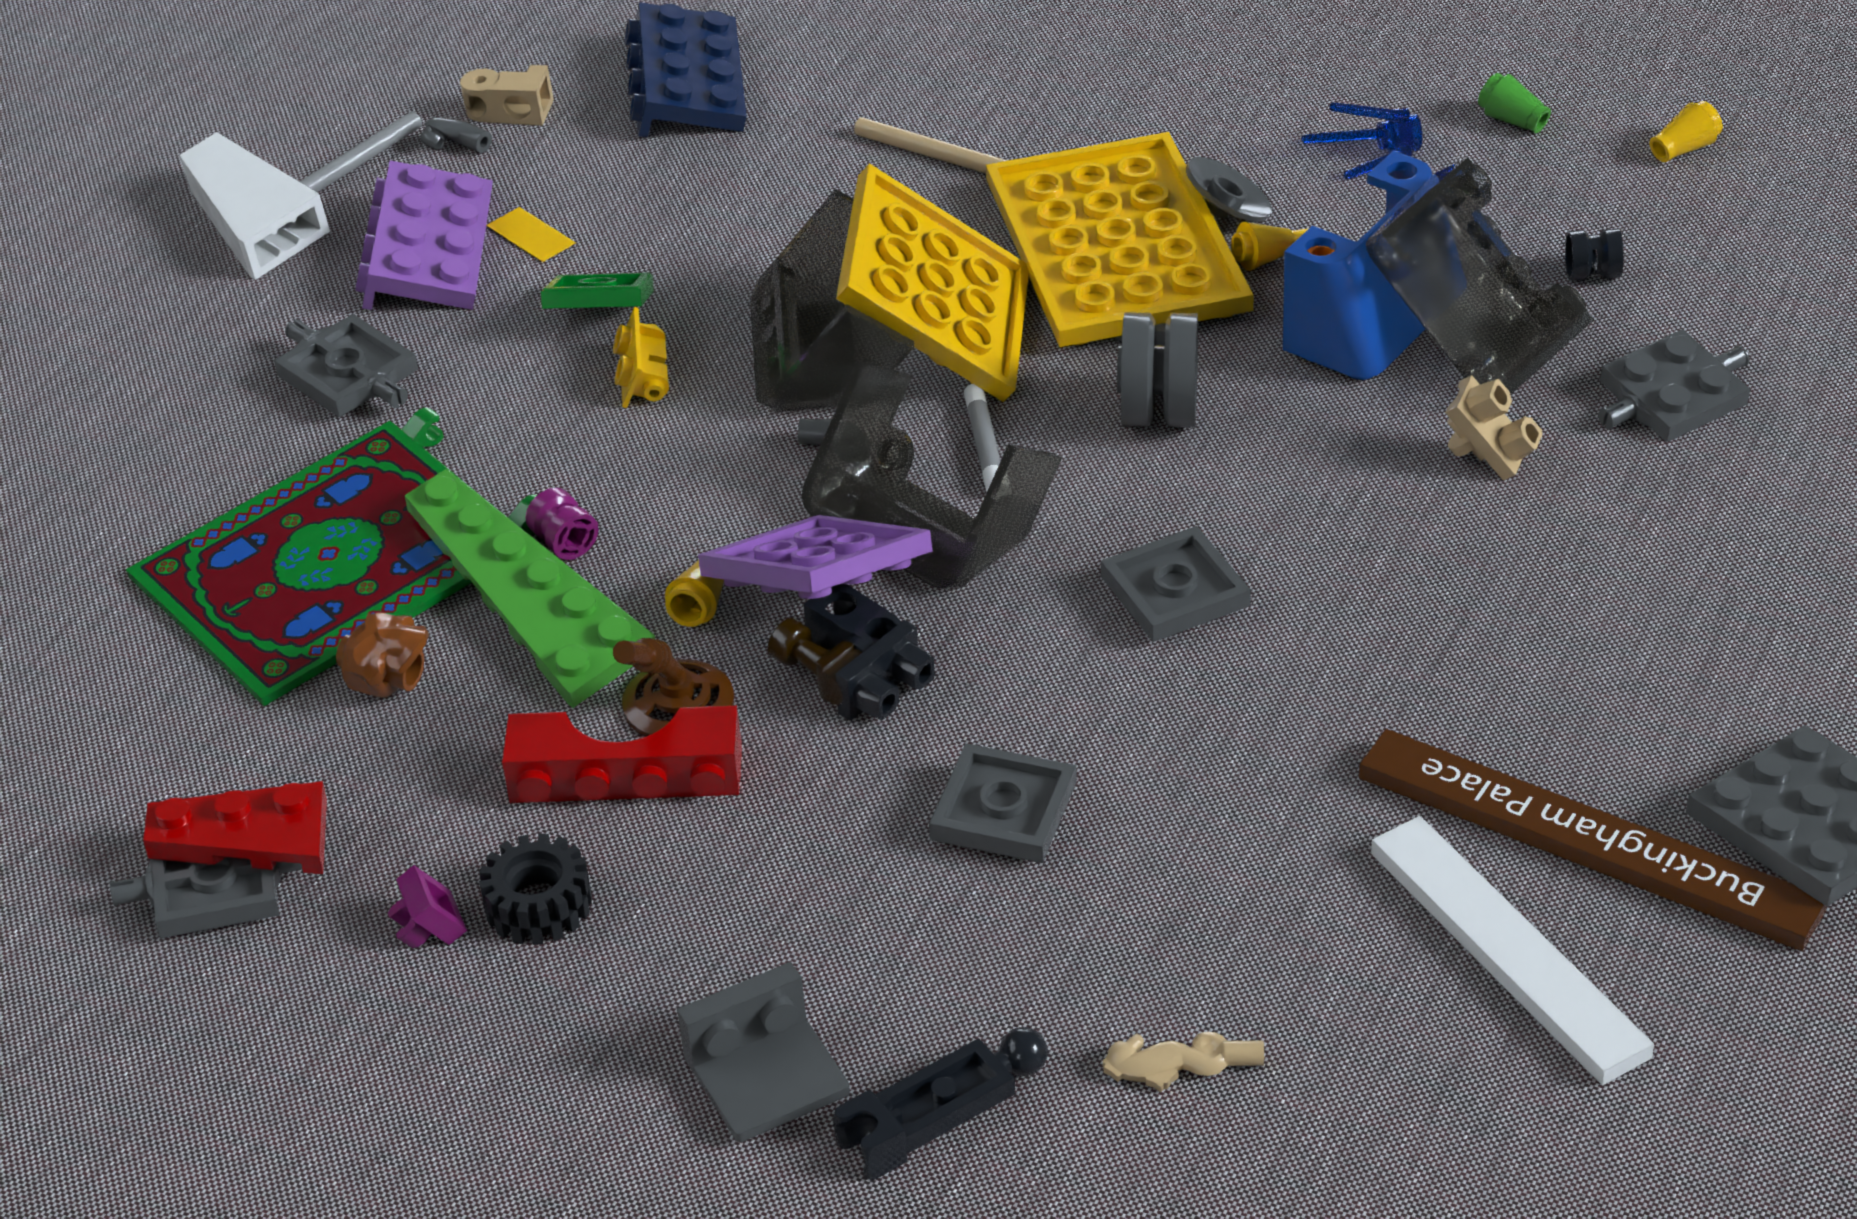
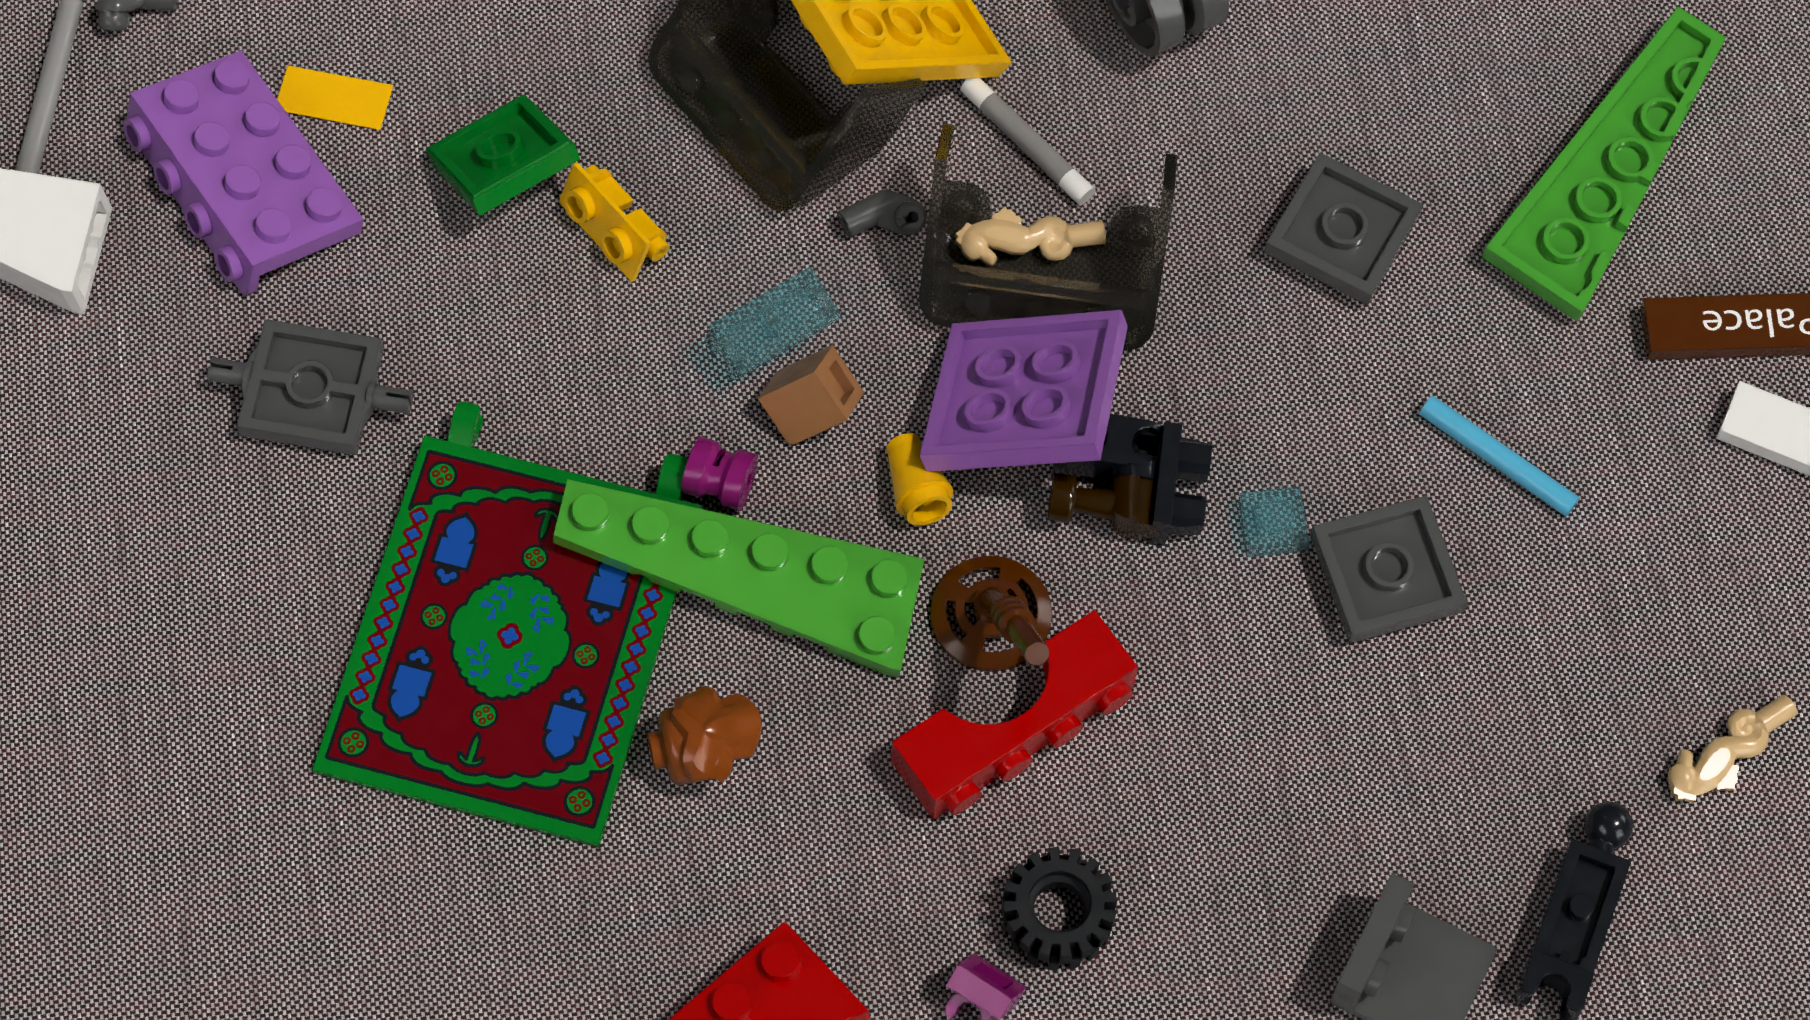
camera: 40 degrees left, 25 degrees up
(674, 505) = (811, 395): none -> medium nougat panel
(683, 449) = (772, 323): none -> clear light blue hinge
(911, 481) = (1007, 235): none -> tan animal
(942, 737) = (1273, 521): none -> clear light blue plate
(1170, 780) = (1499, 456): none -> medium azure bar
(1408, 644) = (1588, 196): none -> bright green wing

